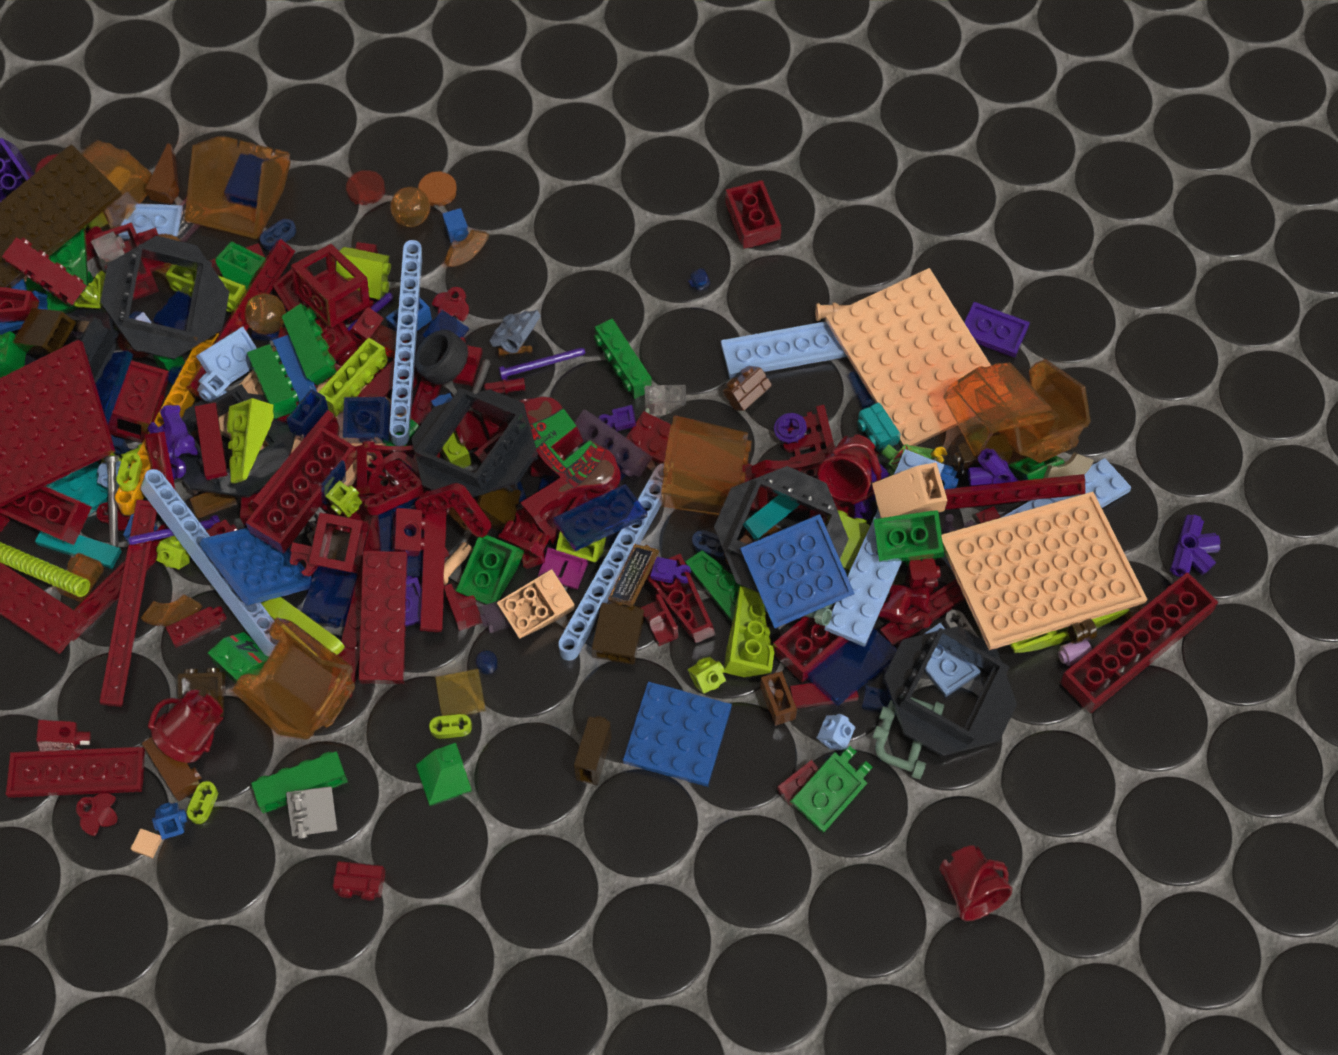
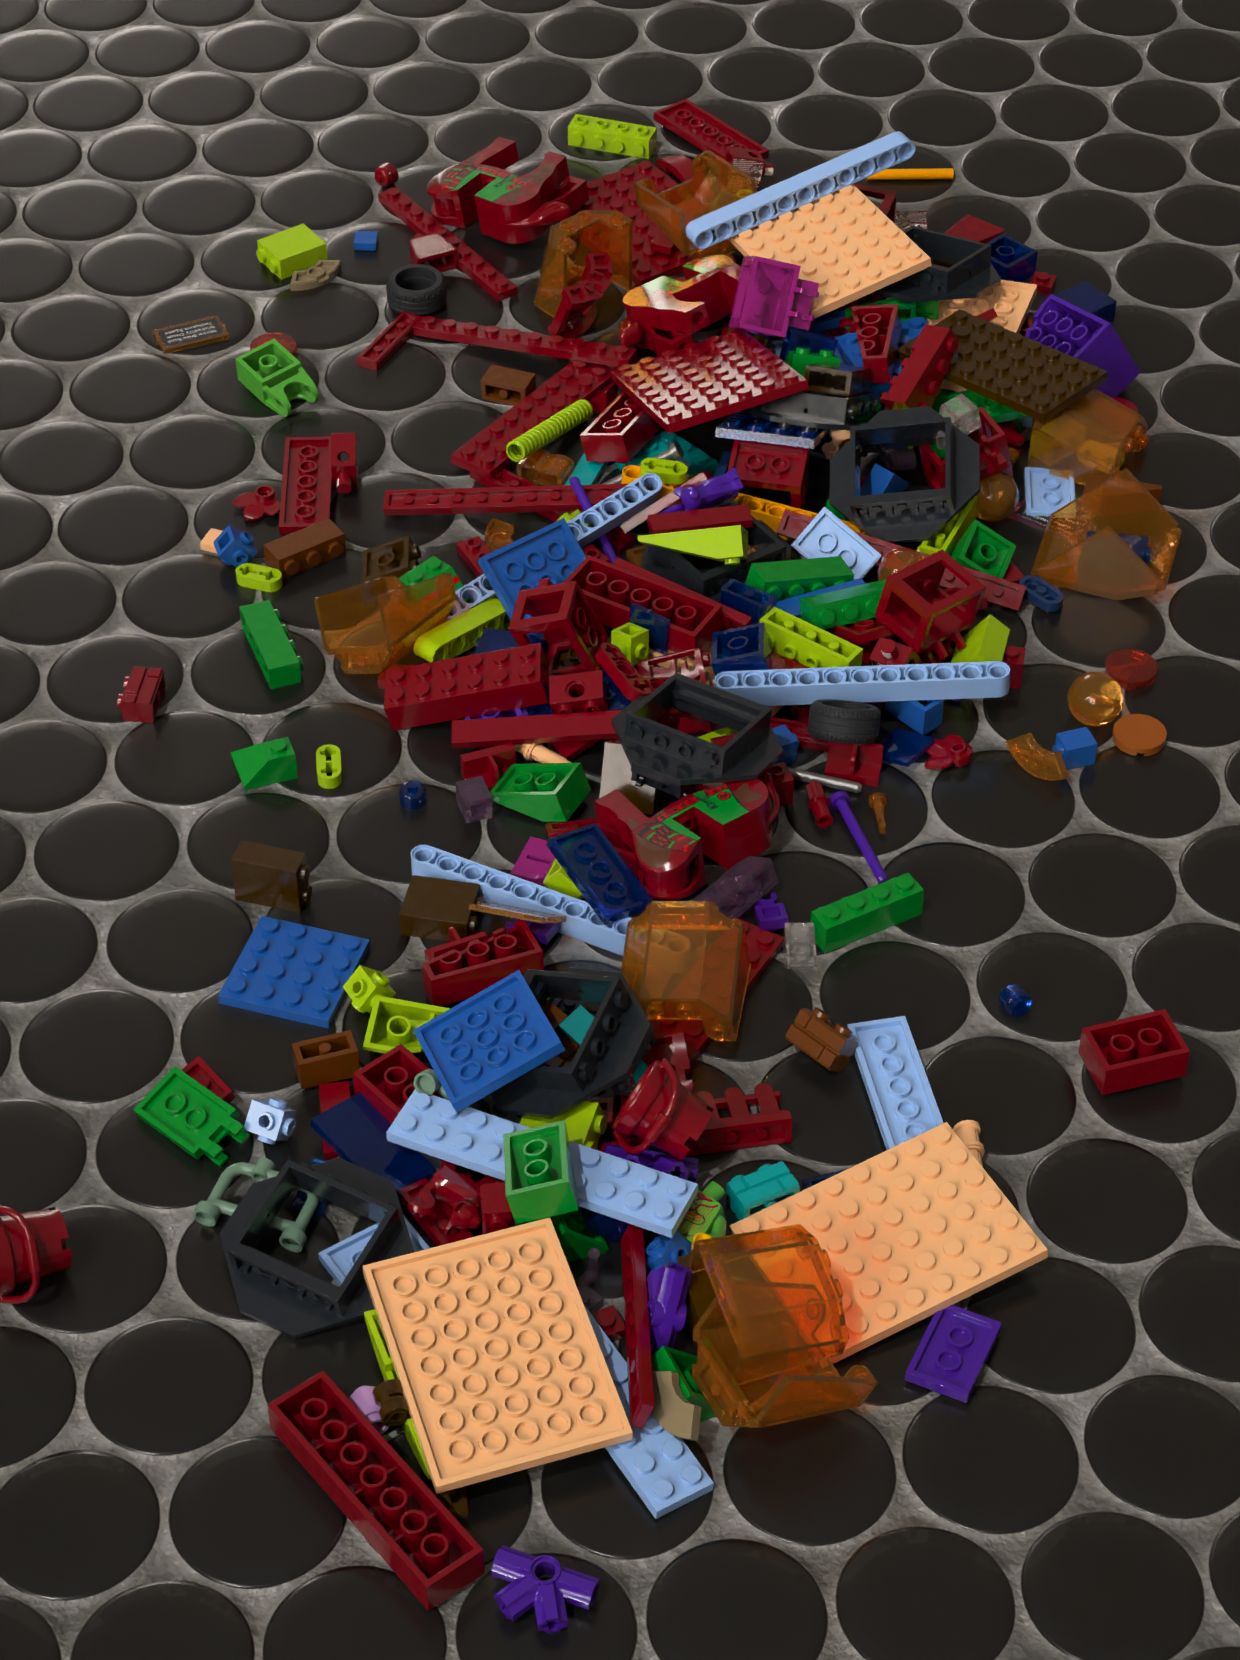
camera: 90 degrees right, 20 degrees down
(187, 727) = (336, 540): dark red piece -> none
(213, 386) = (784, 525): light blue brick -> none
(311, 811) = (229, 649): light grey hinge -> none
(460, 693) = (372, 775): clear yellow tile -> none
(475, 521) = (597, 728): dark red beam -> none
(515, 330) = (893, 795): sand blue plate -> none
(524, 538) = (574, 810): dark red hinge -> none
(536, 604) = (482, 826): light nougat slope -> none
(667, 570) = (515, 935): dark purple plate -> none
(784, 422) = (745, 1082): dark purple gear -> none
(910, 492) = (610, 1174): light nougat slope -> none

